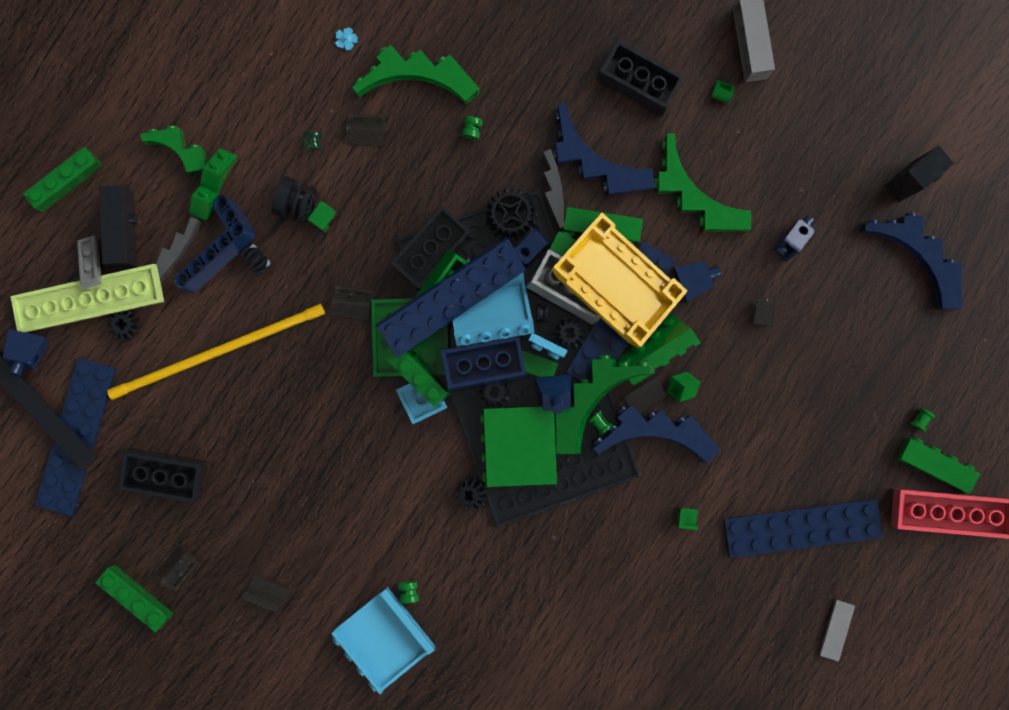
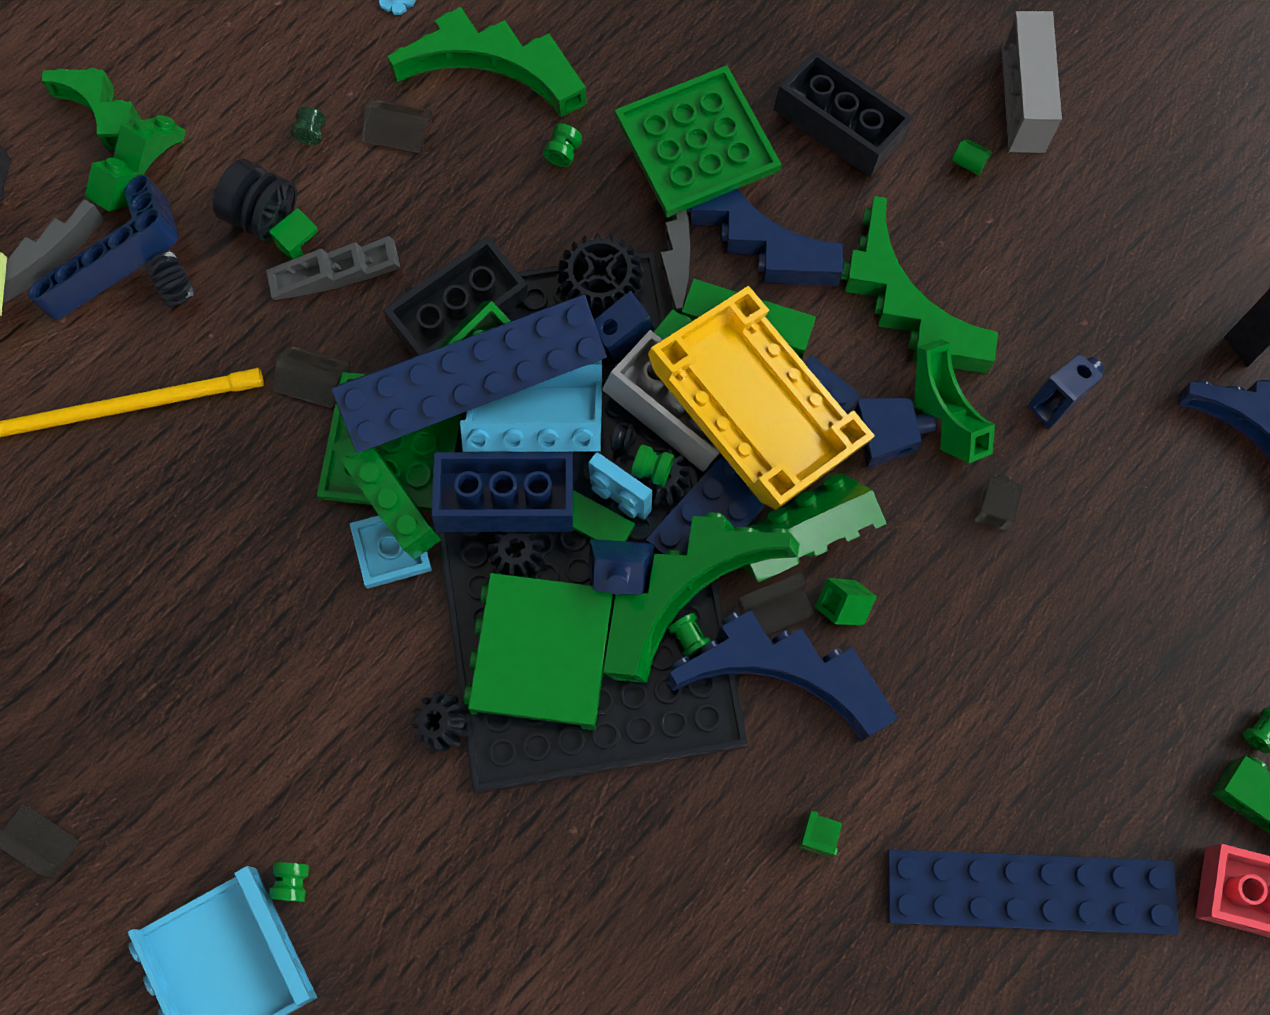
camera: 10 degrees right, 15 degrees down
(349, 233) = (332, 270): none -> dark grey slope
(555, 116) = (697, 141): none -> green plate
(562, 332) = (649, 464): none -> green wheel
(720, 255) = (937, 393): none -> green arch

